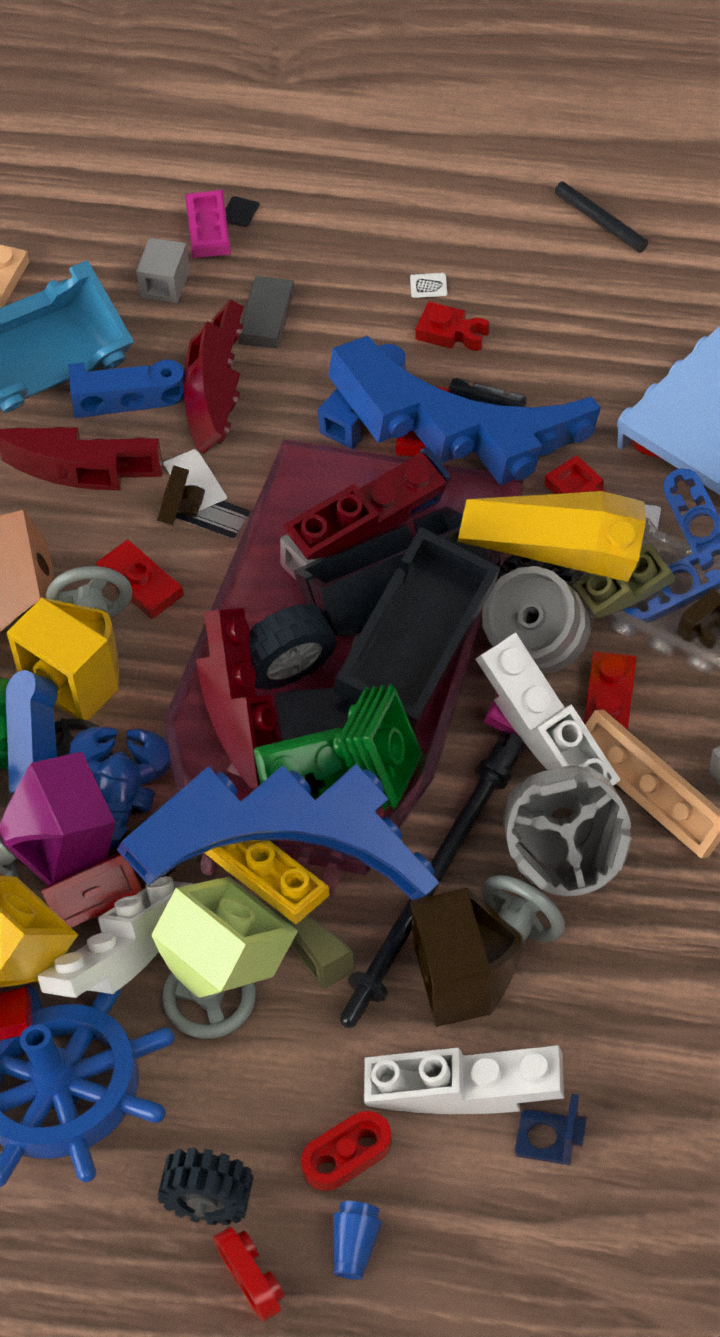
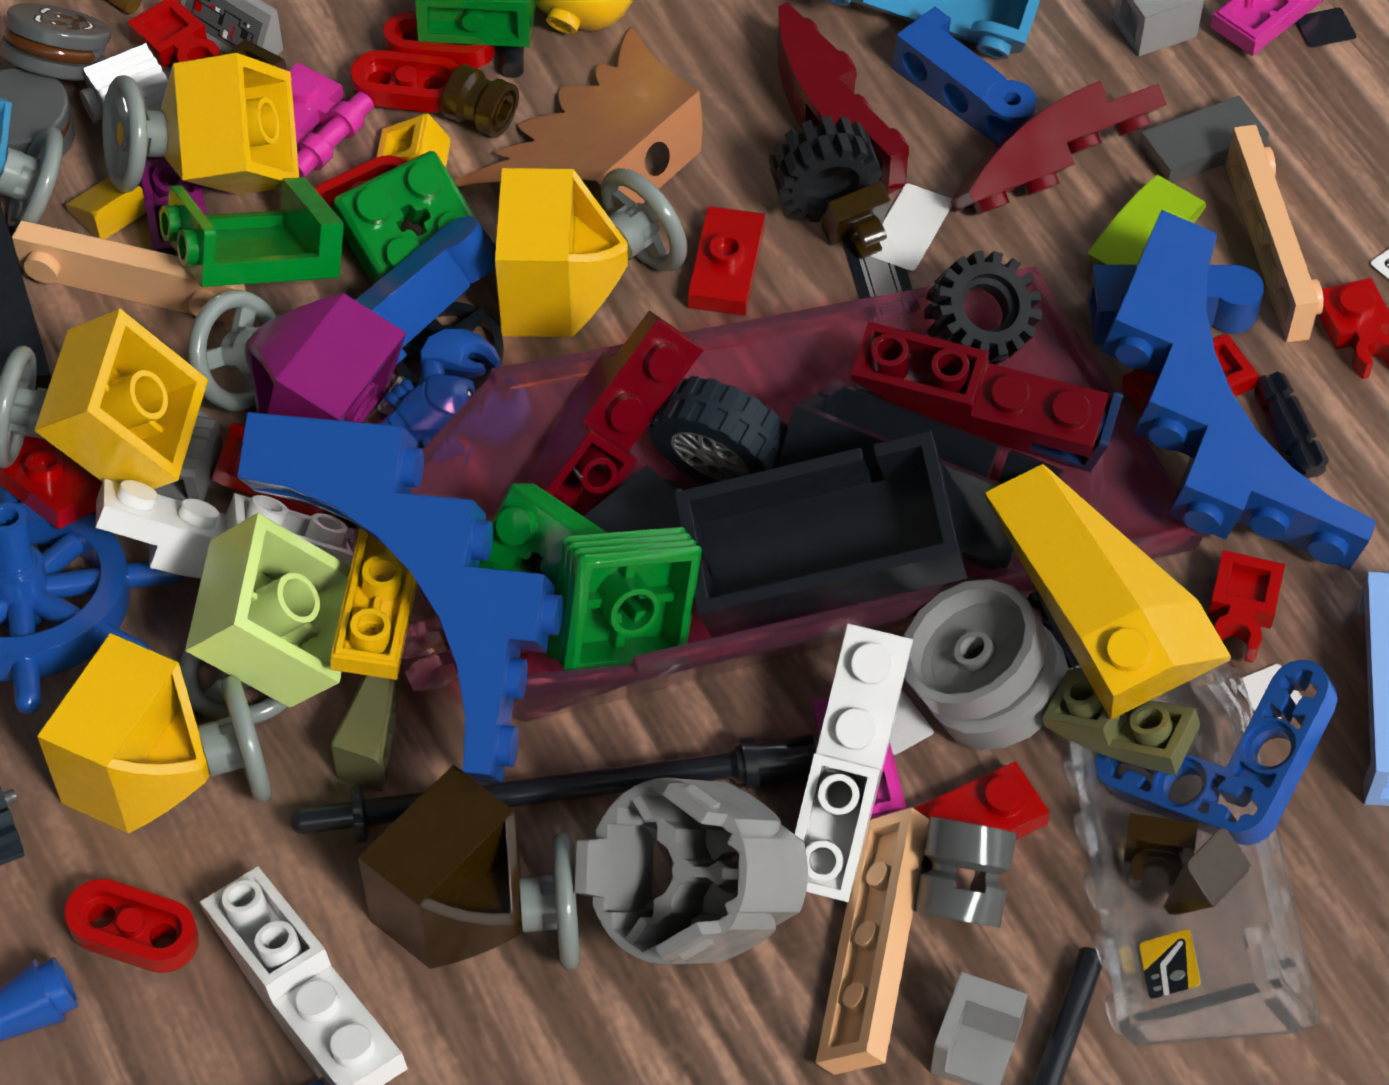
camera: 50 degrees right, 0 degrees up
(134, 487) = (800, 163): none -> black tyre
(240, 1061) = (130, 741): none -> yellow piece
(305, 374) = (1130, 229): none -> lime slope
(310, 461) = (1003, 285): none -> black tyre
(359, 320) = (1291, 289): none -> light nougat plate
(652, 711) = (968, 847): none -> dark grey wheel

